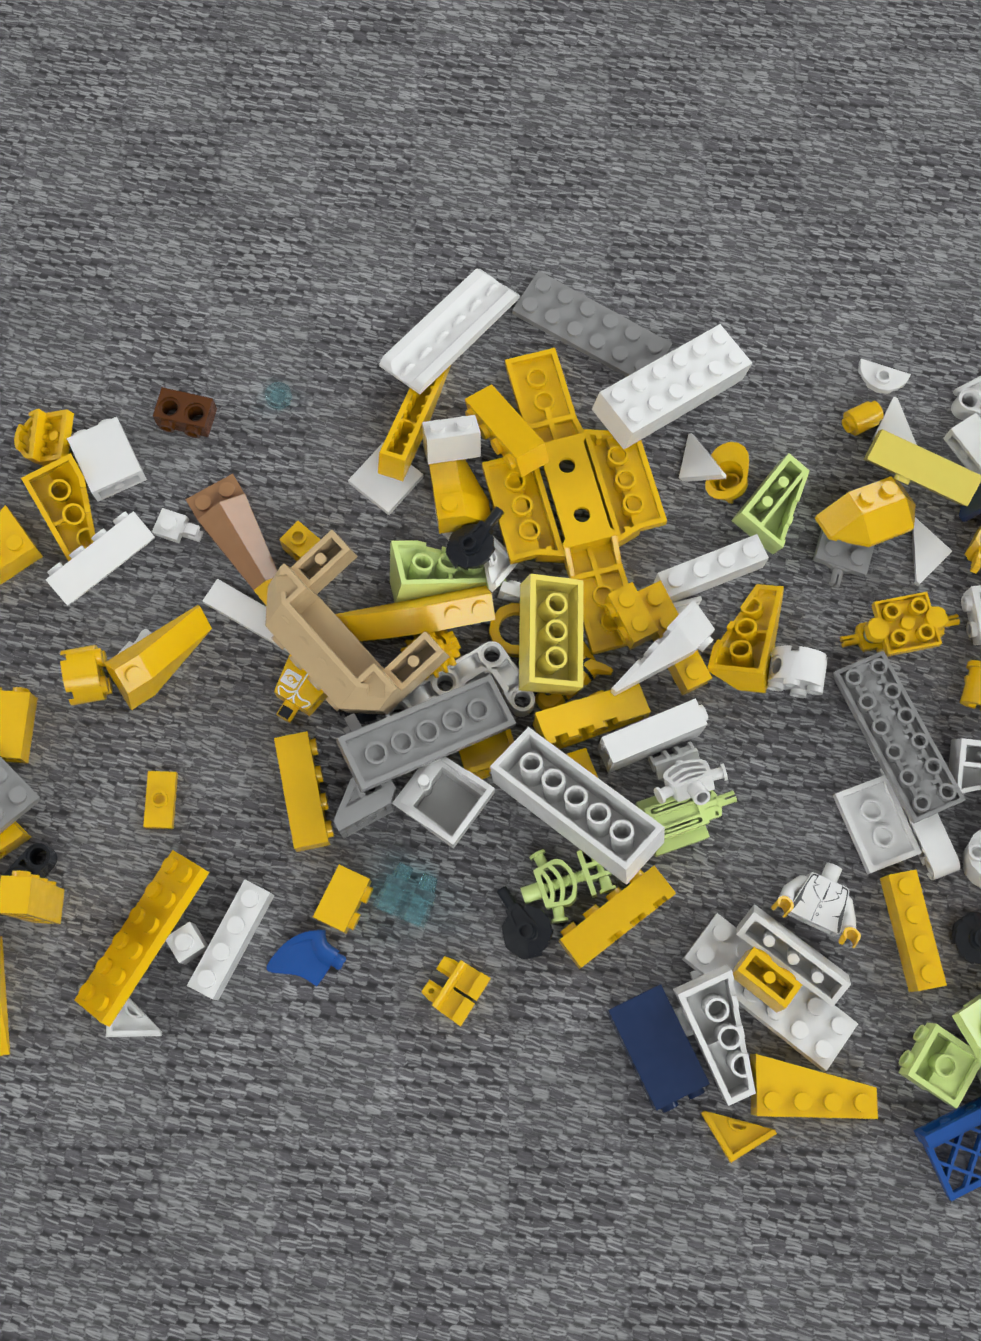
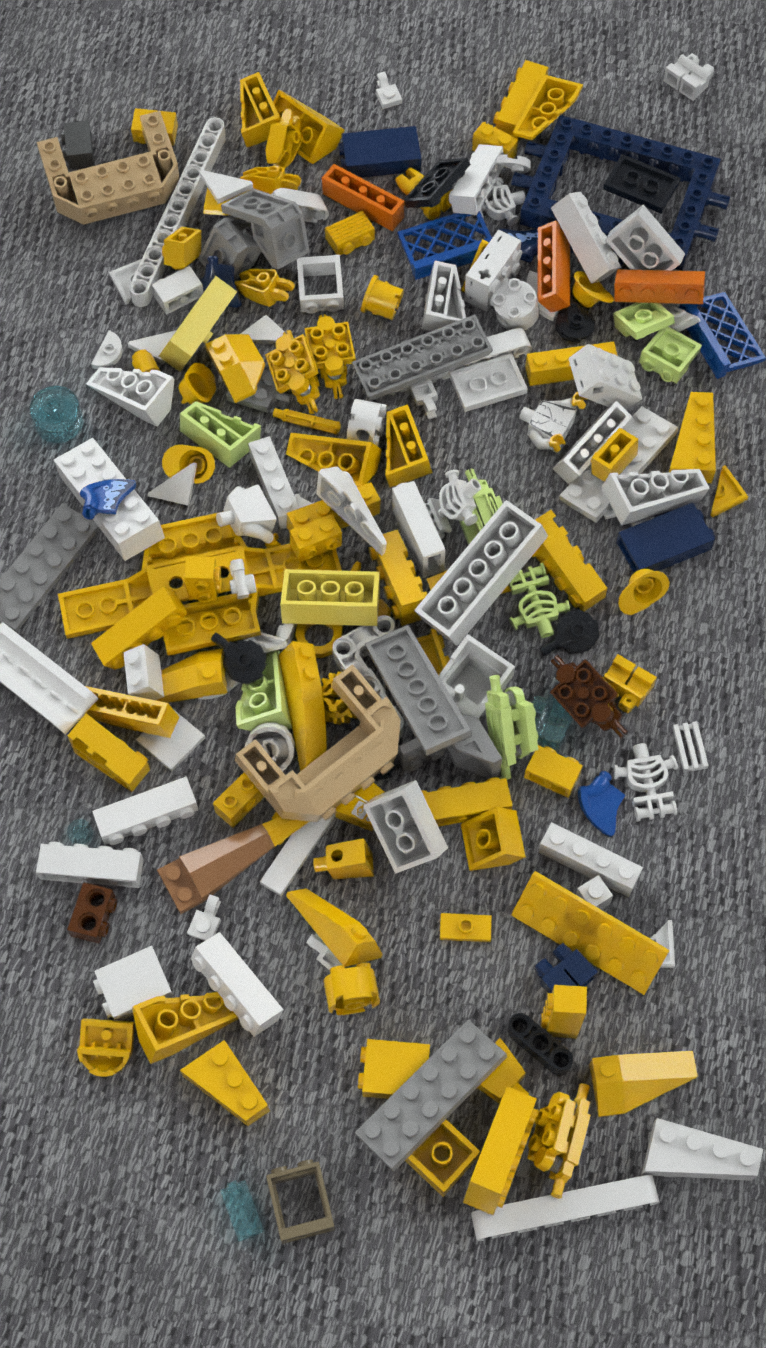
camera: 85 degrees left, 10 degrees down
(94, 911) = (571, 971): none -> dark blue hips
(233, 667) = (346, 860): none -> yellow torso
(237, 407) = (90, 865): none -> white brick
(259, 829) = (493, 839): none -> yellow slope
(261, 724) = (405, 826): none -> white brick
(298, 457) = (145, 811): none -> white brick
(354, 1073) = (686, 728): none -> white tile
(359, 1009) = (640, 771): none -> white piece
(362, 413) = (108, 753): none -> yellow wedge
(366, 579) = (276, 742): none -> white brick
(392, 851) = (510, 724): none -> yellowish green piece
(430, 935) = (587, 696): none -> reddish brown piece
(559, 486) = (202, 578): none -> yellow brick
(562, 533) = (241, 583): none -> white plate
(584, 1014) = (643, 590): none -> yellow piece
(658, 539) = (249, 515): none -> white torso
(660, 373) = (105, 496): none -> blue arm
(769, 720) = (405, 451): none -> yellow wedge
(785, 325) = (56, 414): none -> clear light blue wheel
(803, 607) = (308, 420): none -> yellow piece
(825, 409) = (141, 393): none -> white wedge
(839, 475) = (197, 384): none -> yellow piece
(850, 744) = (425, 395): none -> white plate
(868, 583) = (295, 369): none -> yellow piece
(884, 970) = (605, 377): none -> white piece

